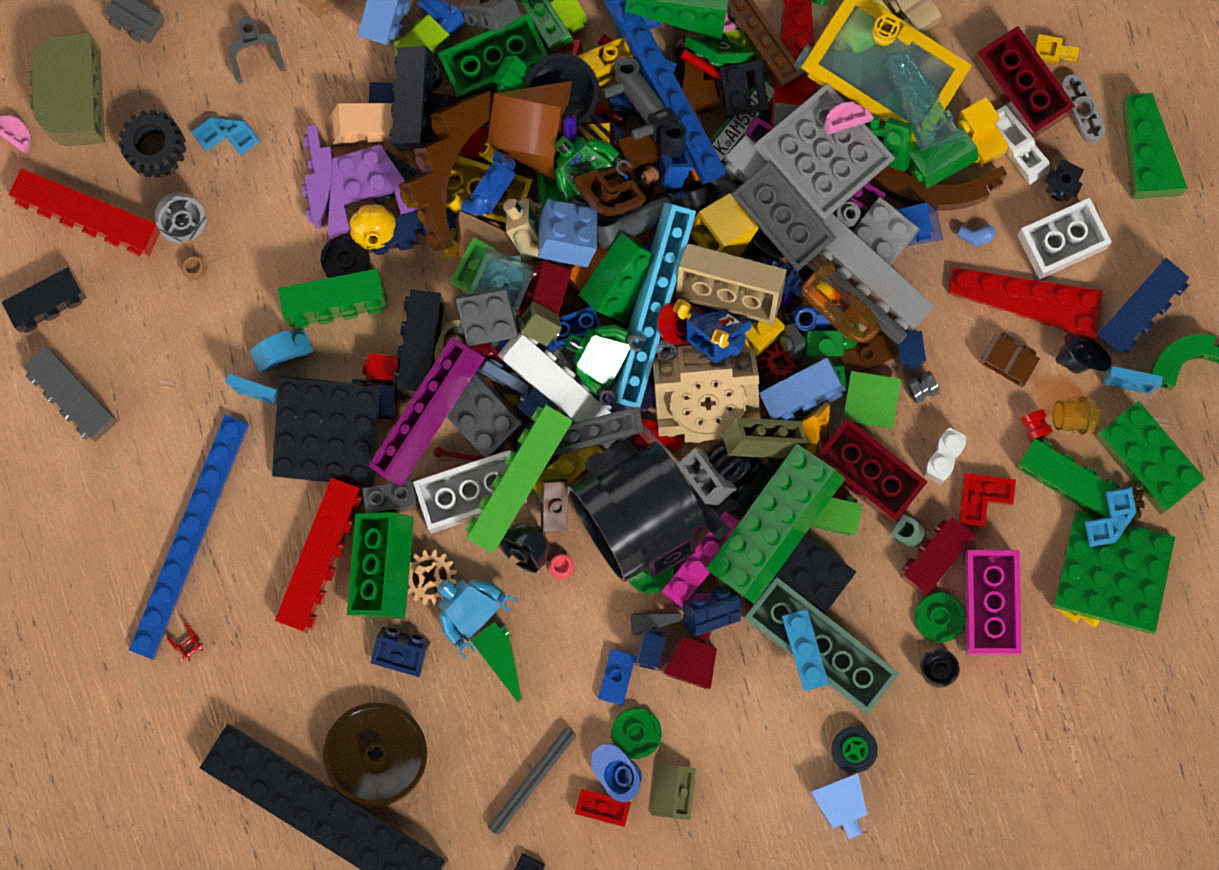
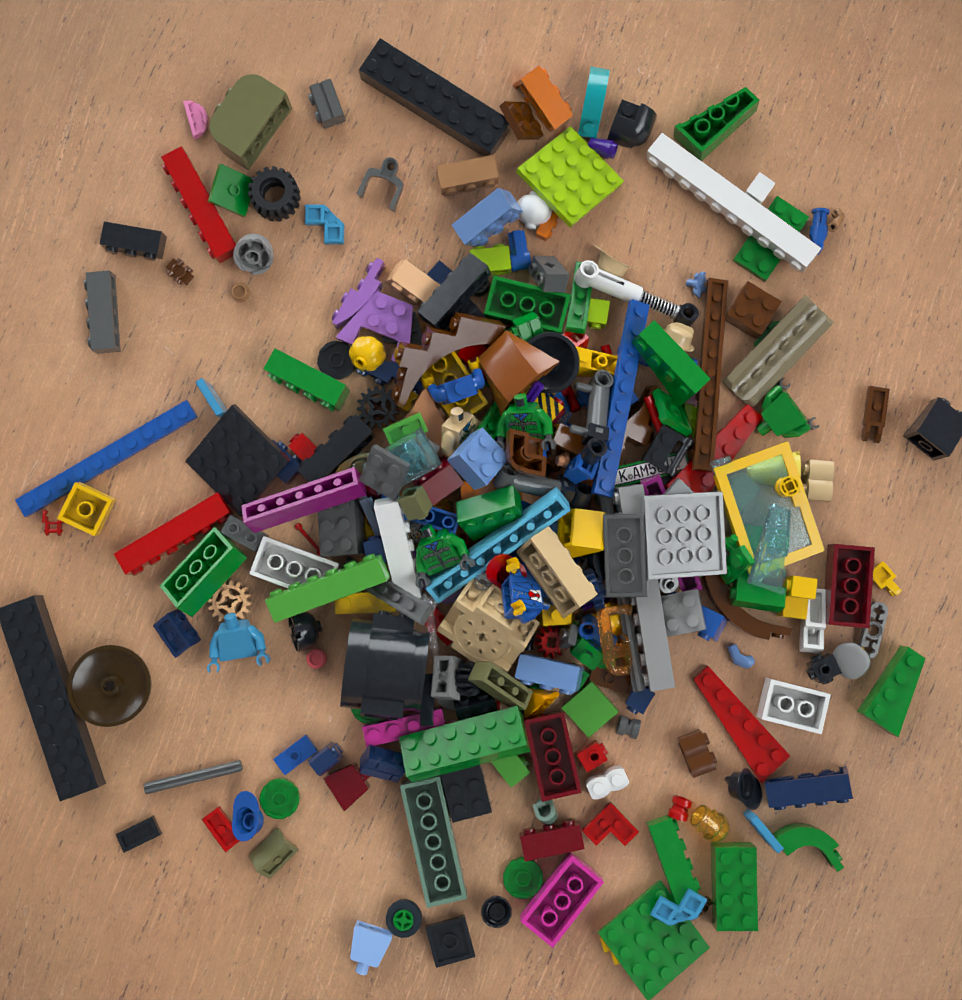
camera: 35 degrees right, 5 degrees up
(106, 173) = (230, 190): none -> green plate
(120, 295) = (182, 274): none -> reddish brown piece
(211, 597) = (86, 508): none -> yellow brick
(279, 349) = (251, 386): dark azure brick -> none
(414, 271) = (372, 414): none -> black gear
(498, 652) = (234, 681): green slope -> none
(554, 505) = (338, 620): plate -> none
(643, 621) = (341, 737): dark grey slope -> none
(805, 650) = (419, 838): dark azure plate -> none
(846, 116) = (716, 523): bright pink plate -> none
(910, 442) = (592, 755): none -> red brick
(918, 734) = (450, 941): none -> black plate
(1085, 151) = (852, 660): none -> light grey piece

